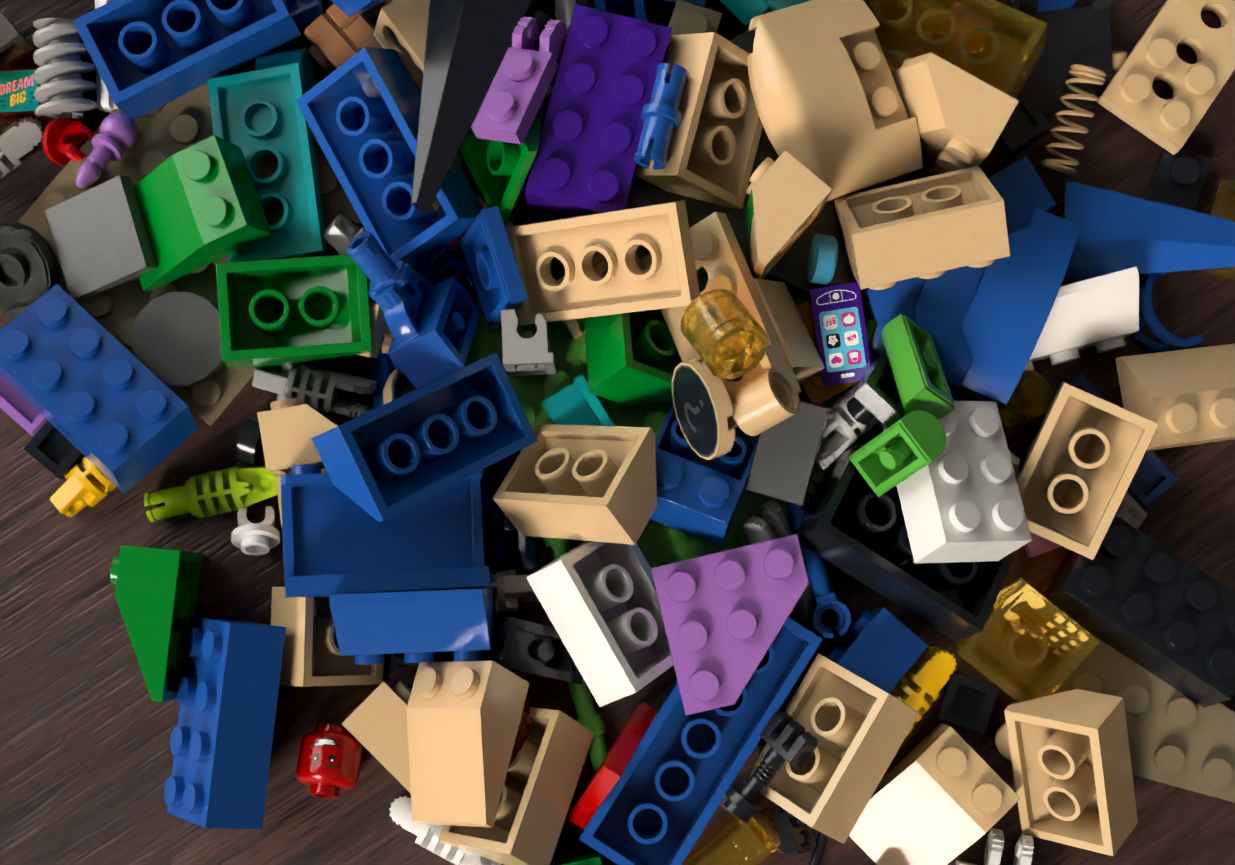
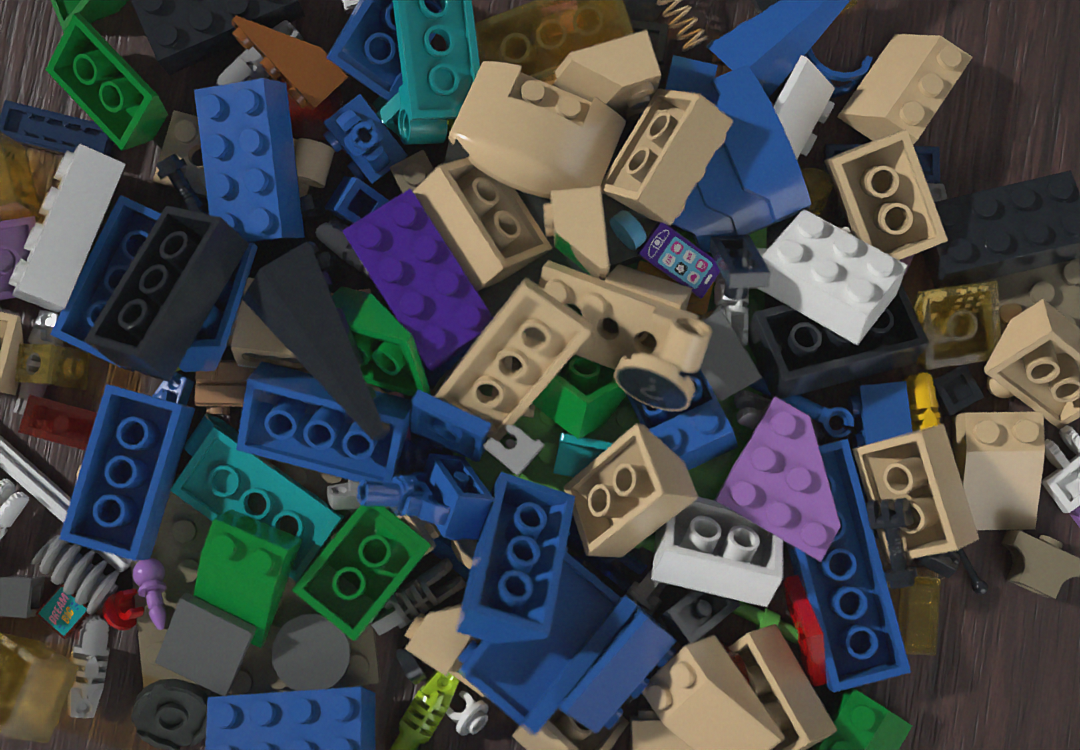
camera: 45 degrees left, 0 degrees up
(520, 82) = (360, 308): medium lavender hinge -> none
(661, 116) = (459, 244): blue pin -> none
(724, 334) = (626, 329): clear yellow piece -> none
(900, 451) = (787, 292): bright green brick -> none
(916, 368) = (747, 237): bright green brick -> none

